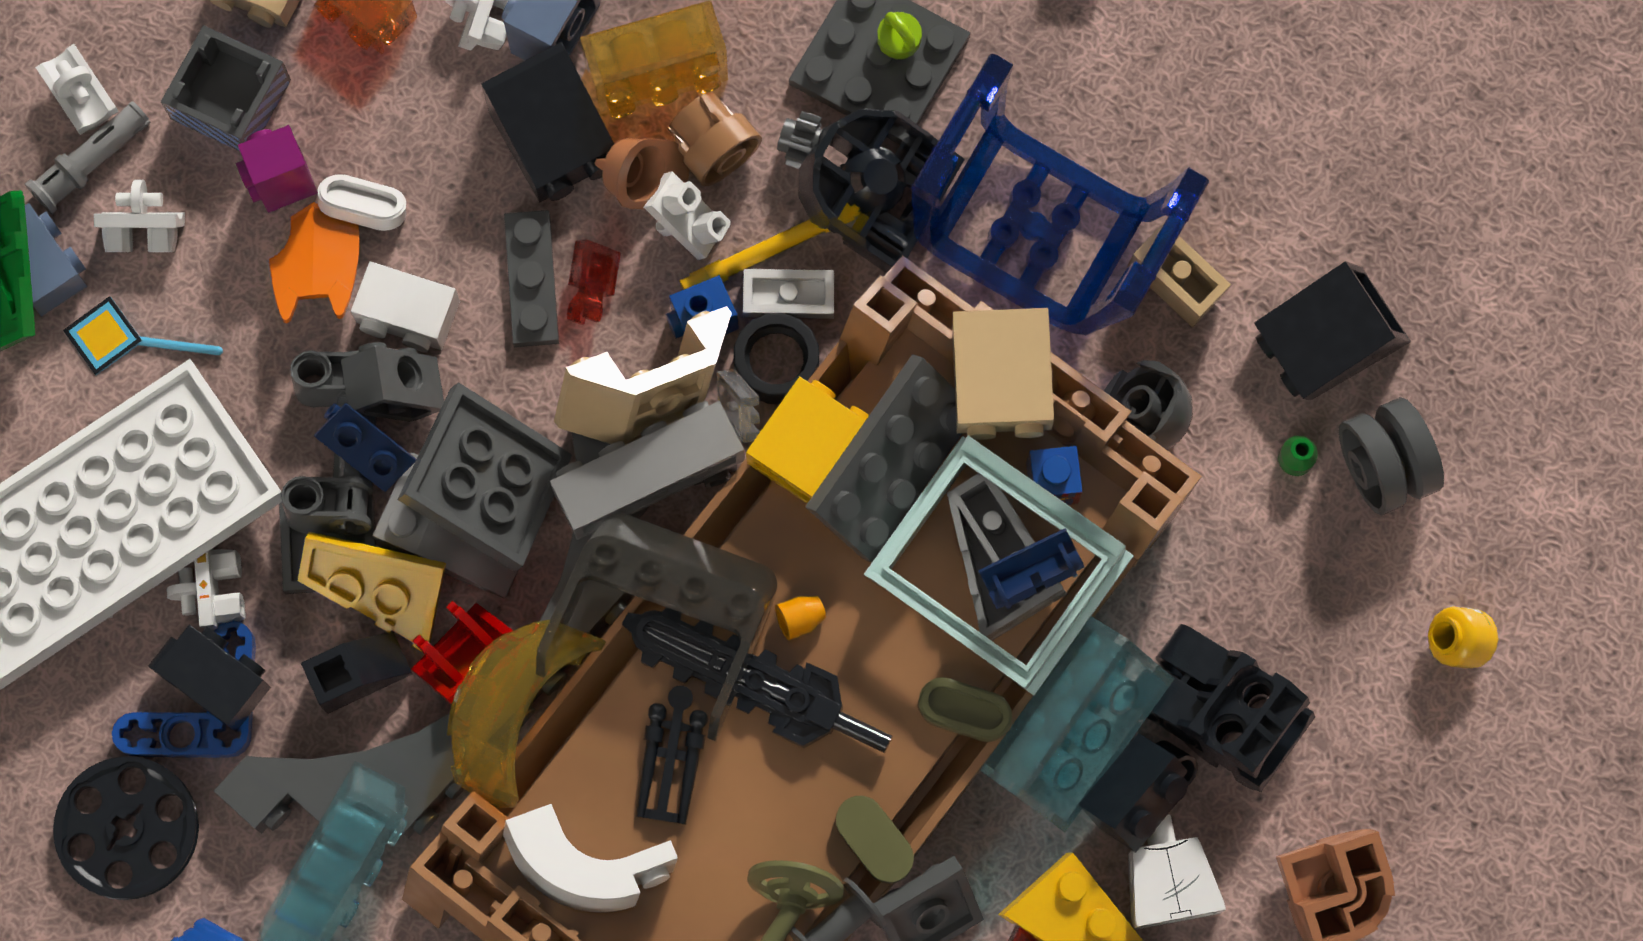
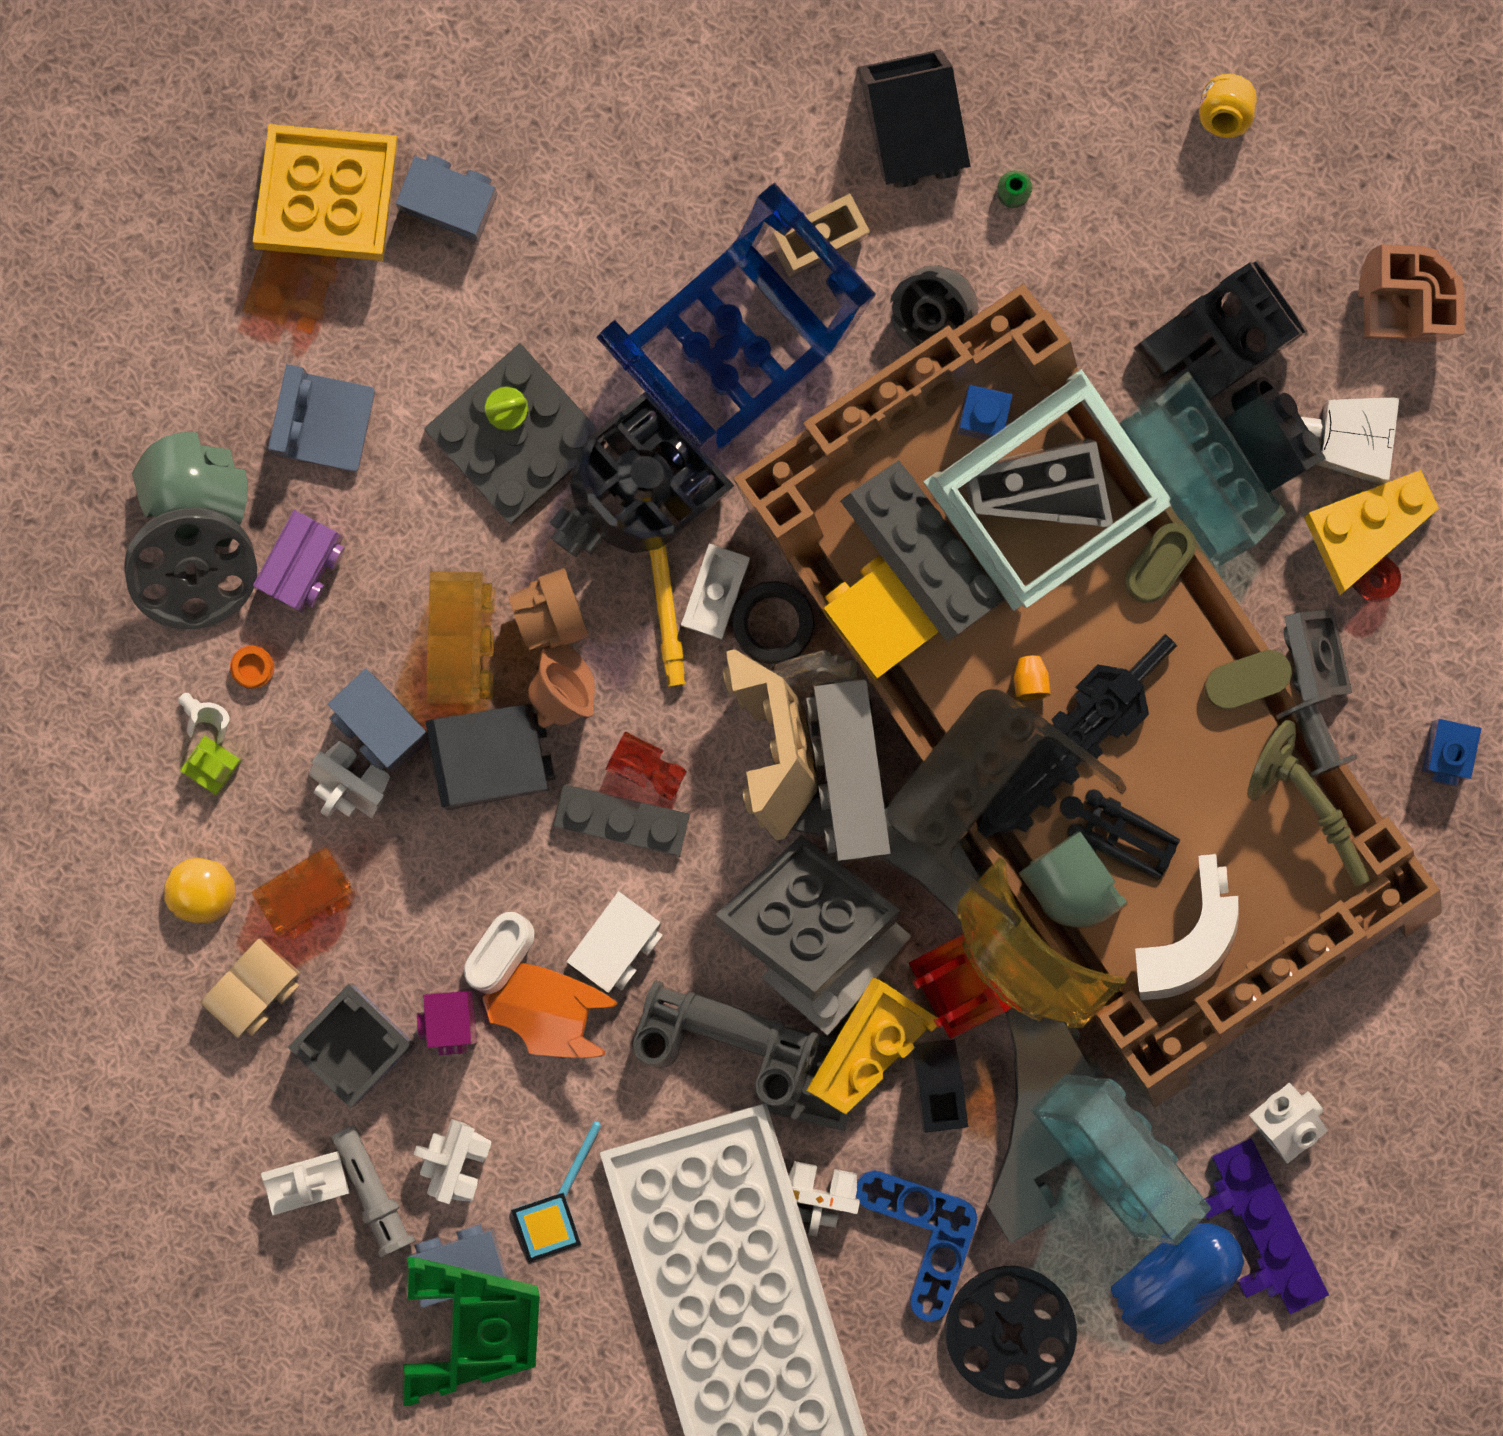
camera: 70 degrees left, 10 degrees up
(211, 675) = (904, 1217): black hinge -> none
(364, 446) = (747, 1017): dark blue hinge -> none
(392, 382) = (689, 974): dark grey brick -> none
(598, 721) = (1073, 884): none -> sand green brick
(685, 216) = (617, 659): white hips -> none
(699, 298) = (706, 676): blue brick -> none
(1002, 372) = (886, 427): tan brick -> none
(1031, 567) = (1073, 443): dark blue hinge -> none
(1391, 456) = (1050, 108): dark grey wheel -> none

